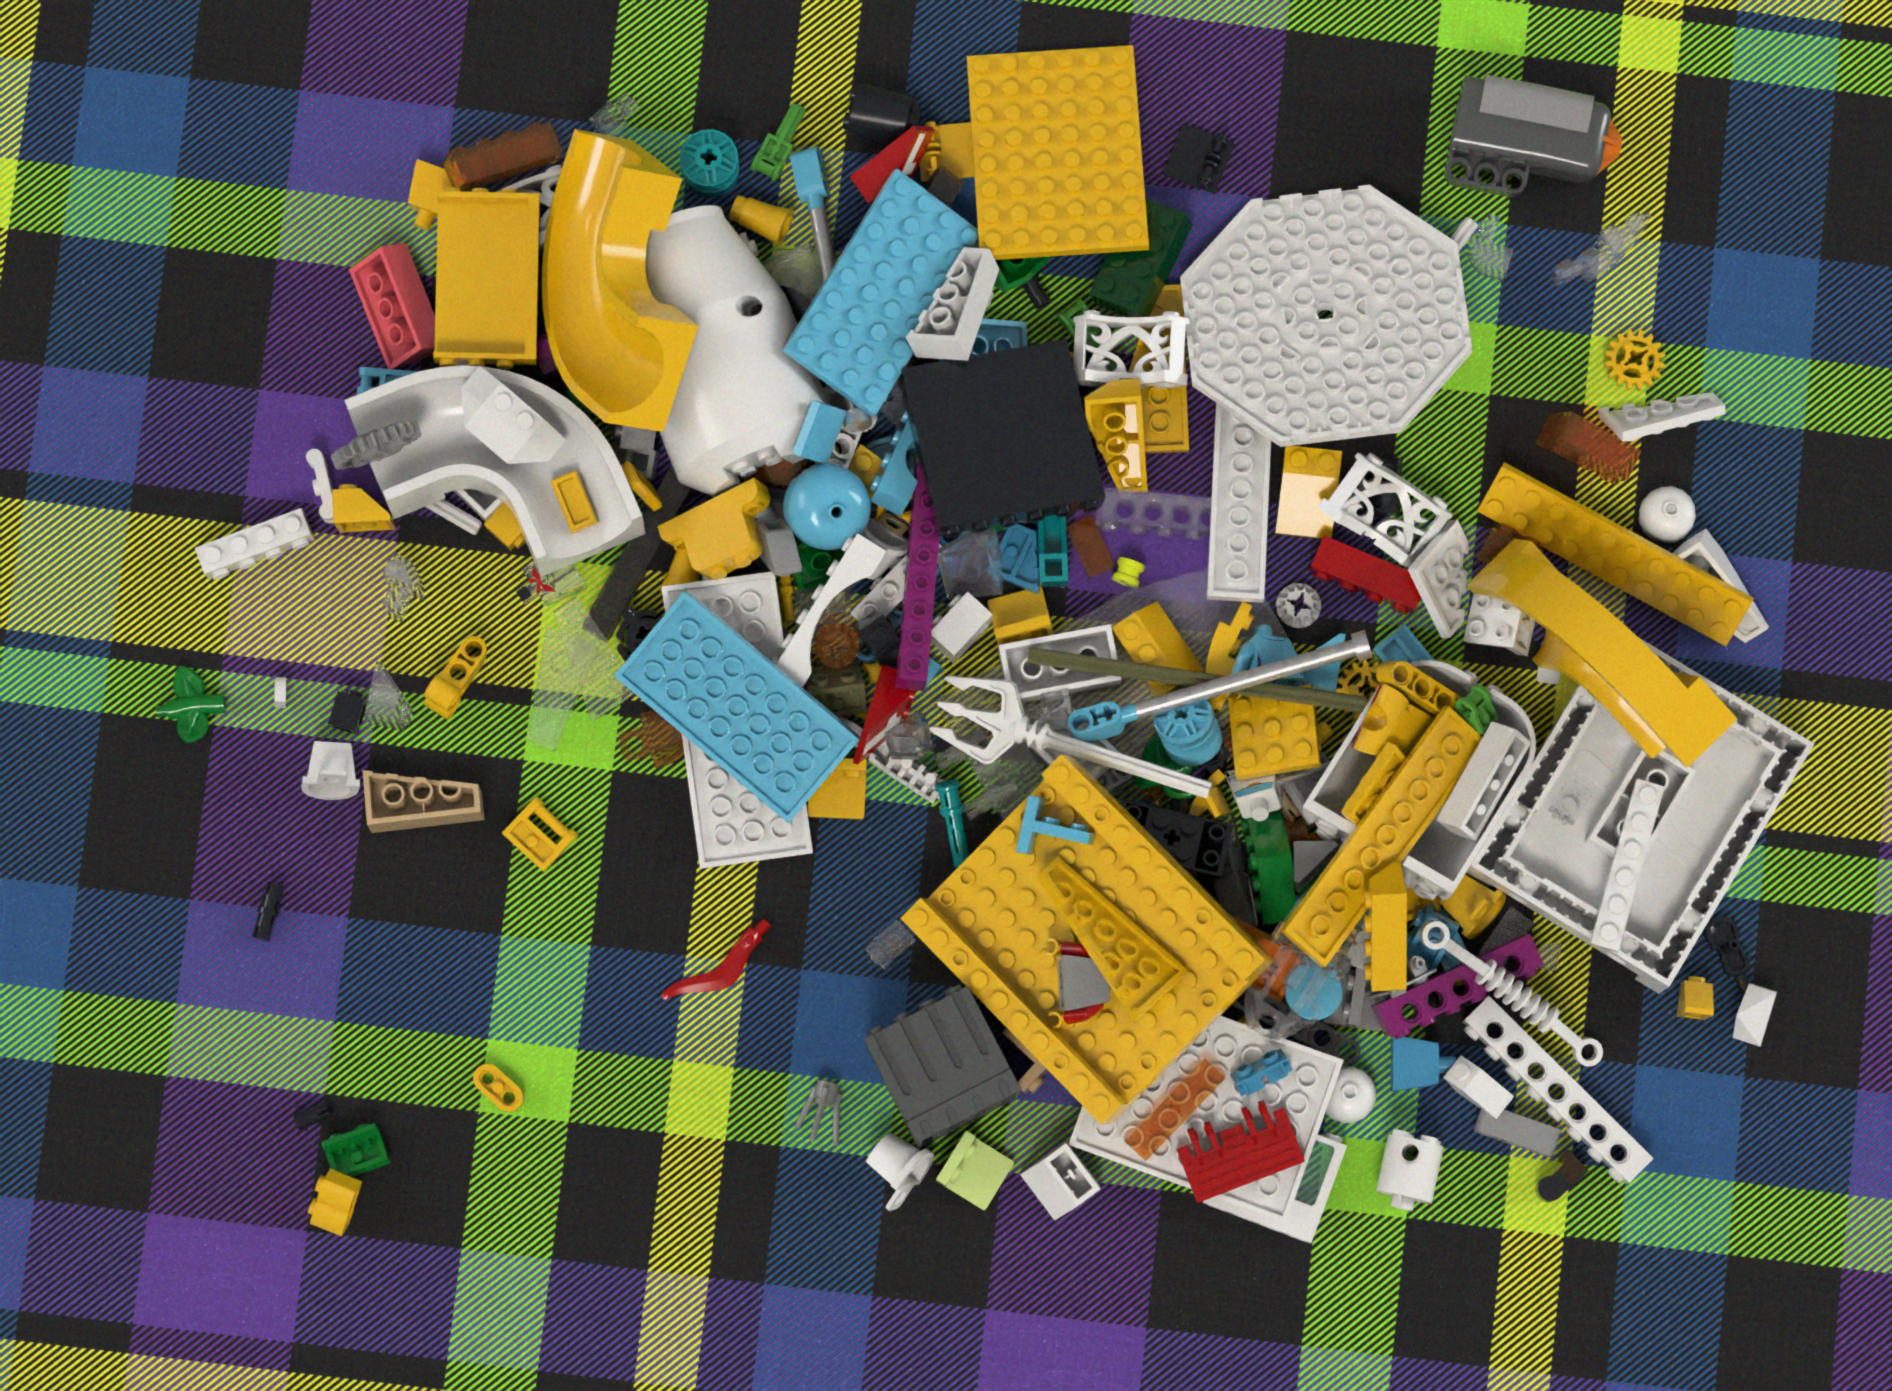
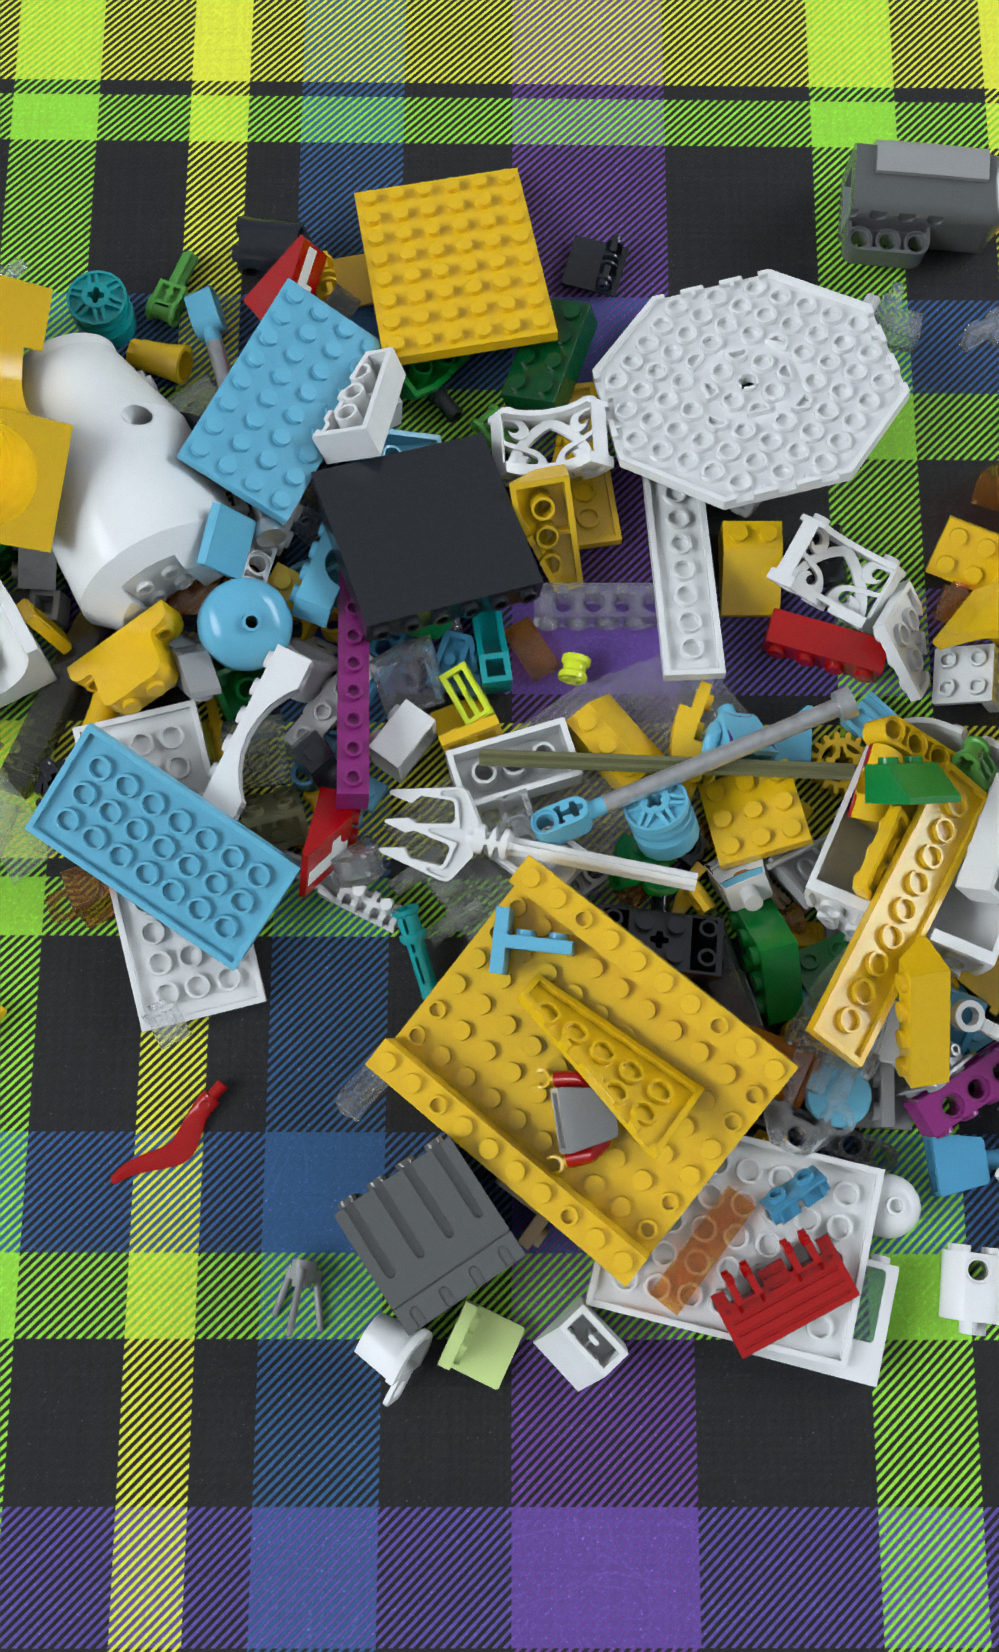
camera: 10 degrees left, 5 degrees down
(724, 863) = (166, 1023): none -> clear bracket
(841, 793) = (291, 931): yellow bracket -> none
(842, 657) = (278, 784): clear orange gear -> none
(1033, 583) = (477, 689): none -> neon yellow tile
(1305, 616) = (744, 691): white gear -> none
(1310, 859) = (815, 946): light grey slope -> none
(1402, 725) = (908, 782): none -> green slope

